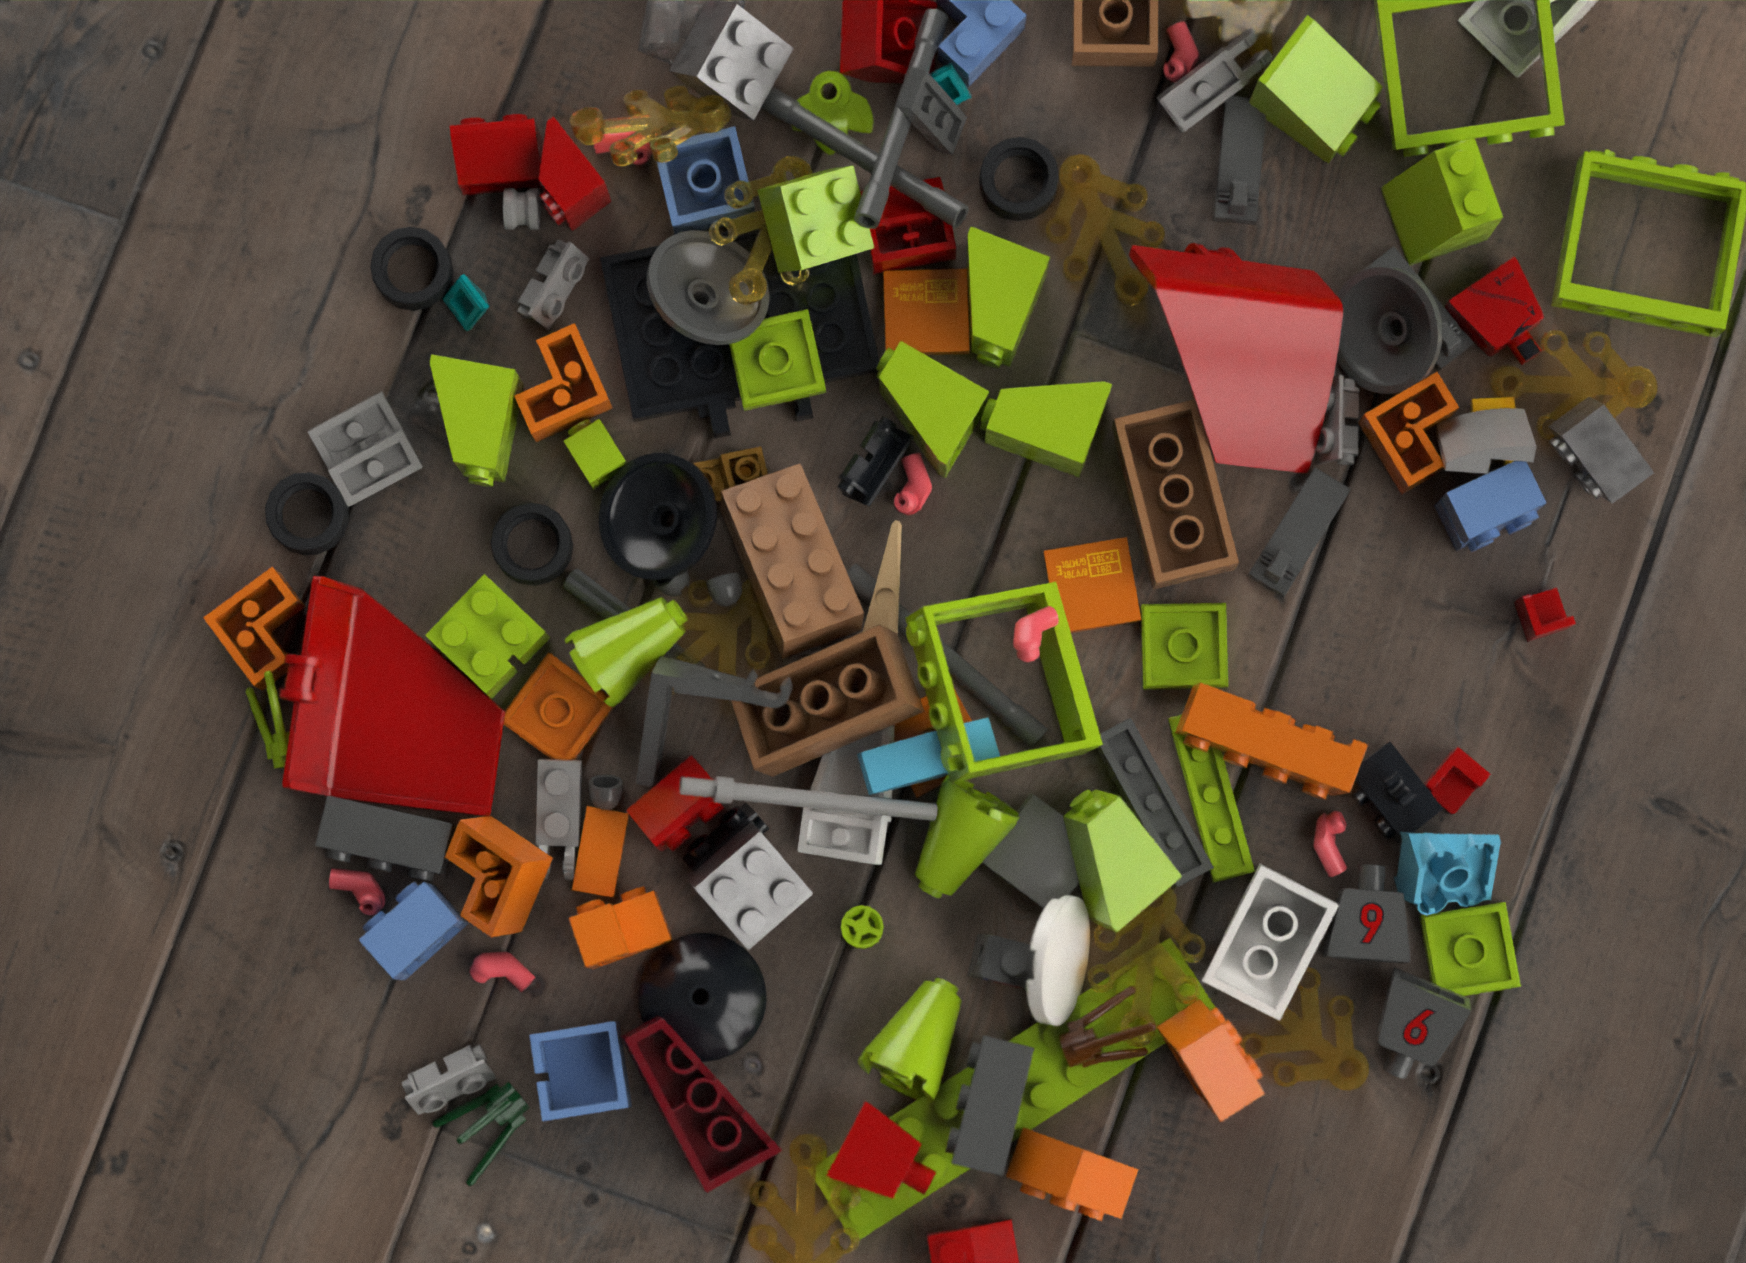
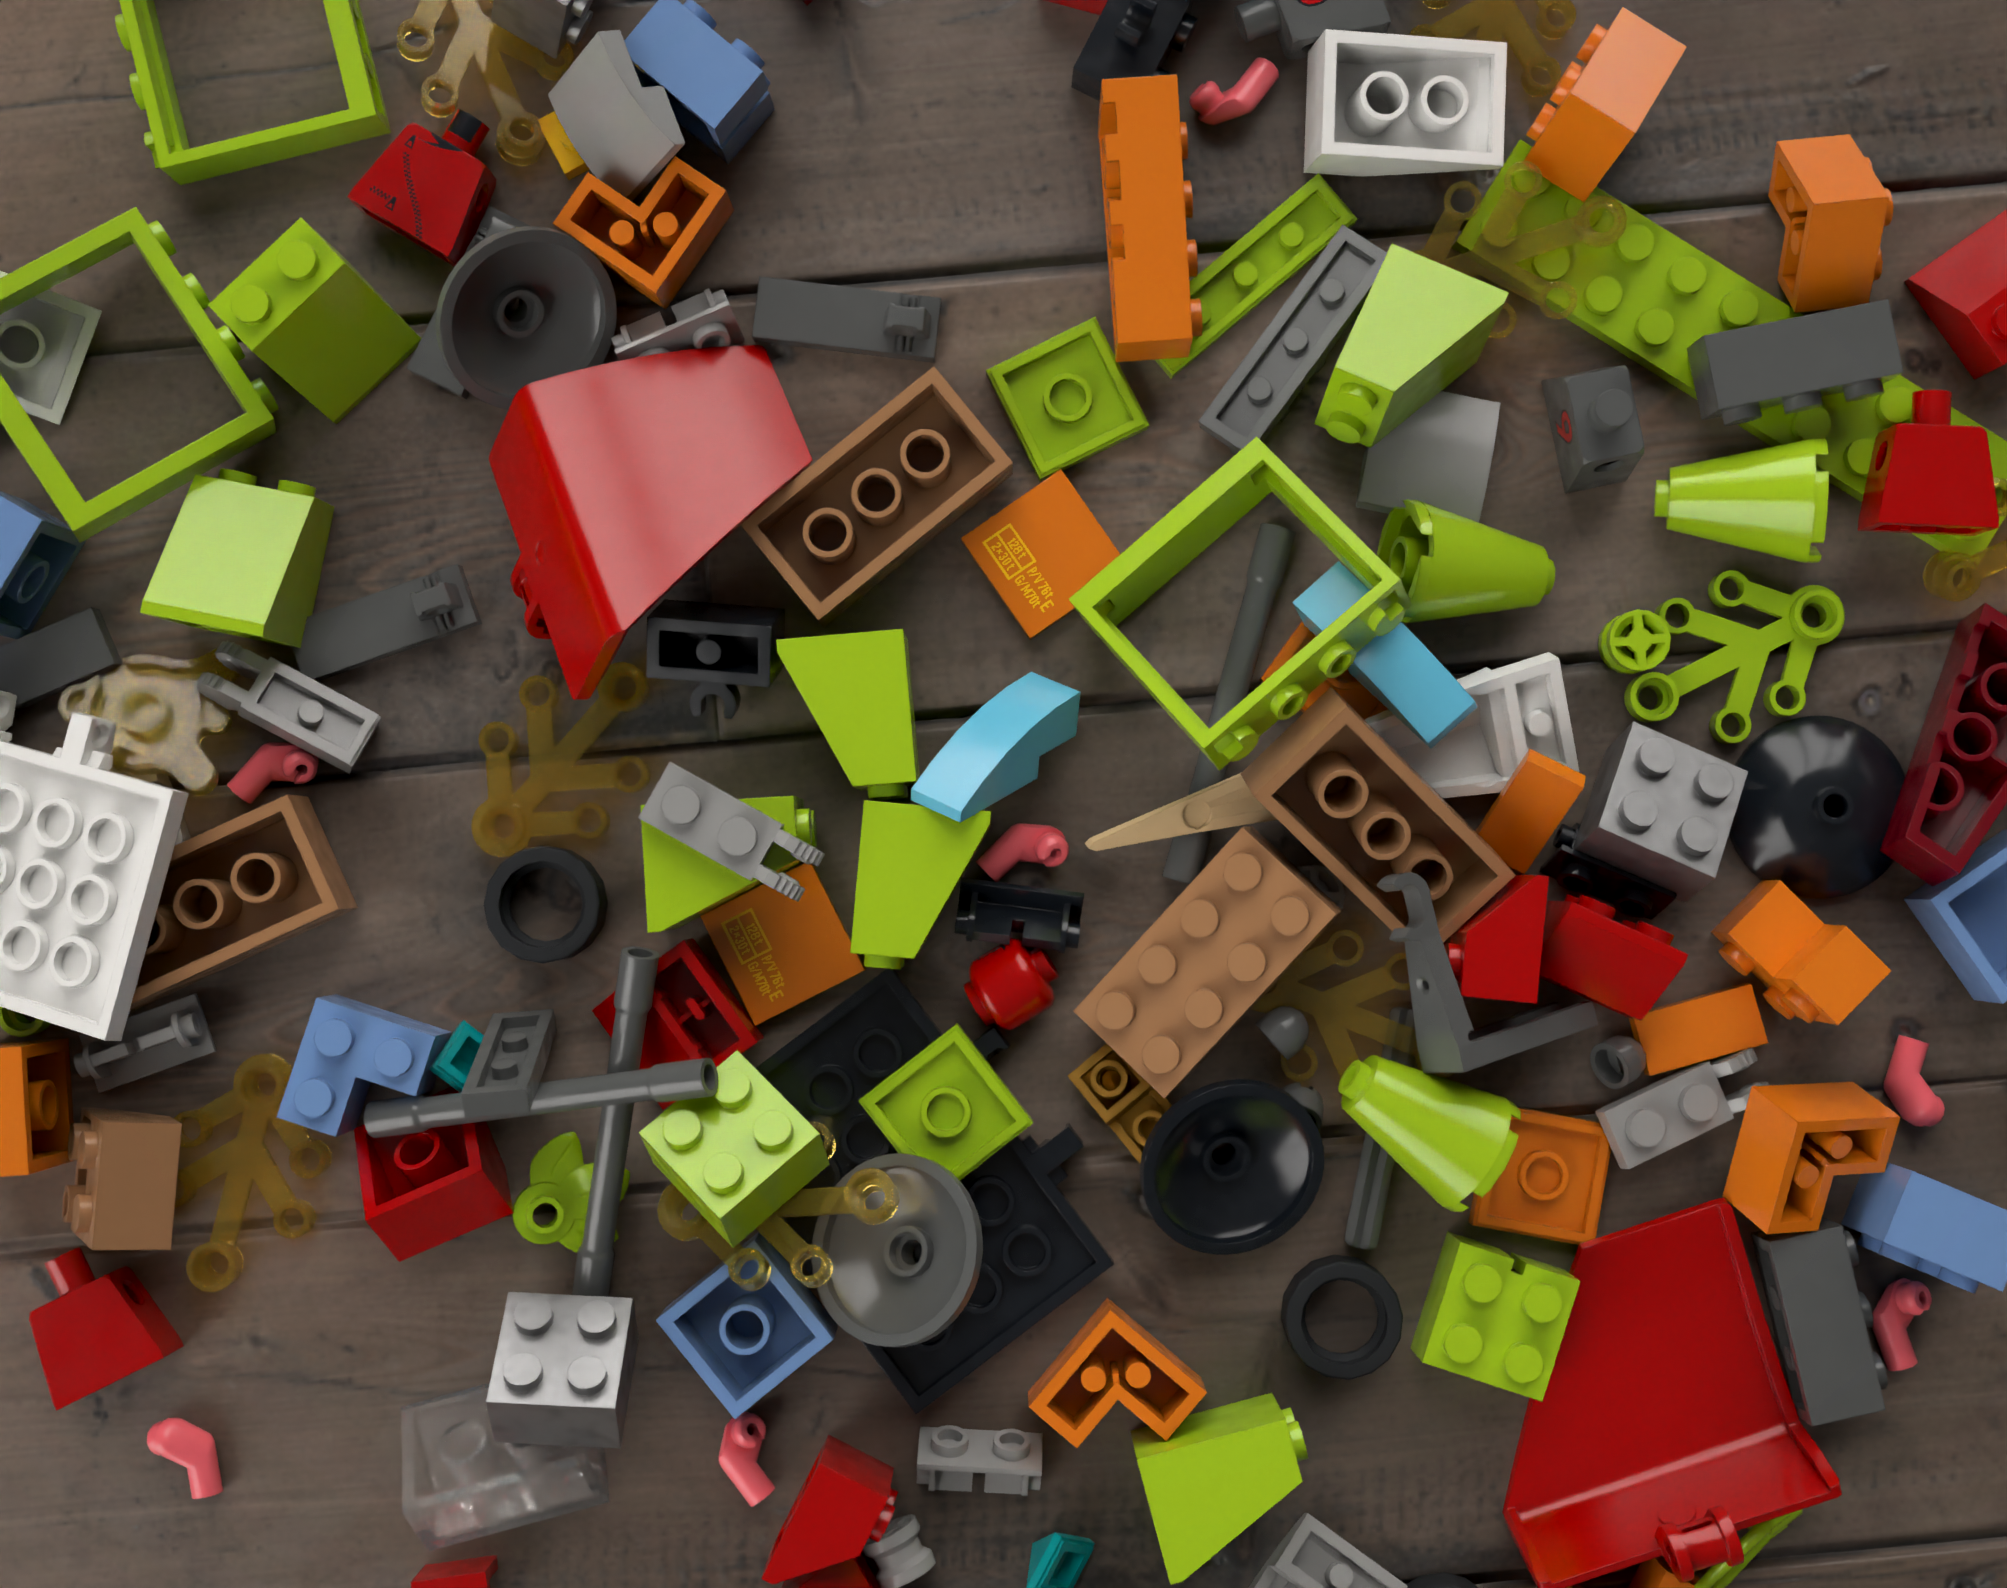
camera: 120 degrees left, 5 degrees up
(594, 452) = (1181, 1293): lime brick -> none
(701, 114) = (659, 1371): clear yellow plant -> none
(714, 738) = (1502, 943): none -> red slope
(725, 790) = (1573, 897): light grey bar -> none
(792, 820) = (1530, 809): none -> orange tile
(823, 996) = (1743, 650): none -> lime plant
(833, 437) = (1011, 984): none -> red head
(983, 493) = (998, 747): none -> medium azure slope
(1010, 299) = (724, 828): none -> light grey hinge
(1029, 632) = (1160, 597): coral arm -> none
(1059, 959) = (1571, 358): white tile -> none
(1084, 1046) = (1658, 280): reddish brown plant -> none
(1128, 352) = (714, 647): none -> black brick

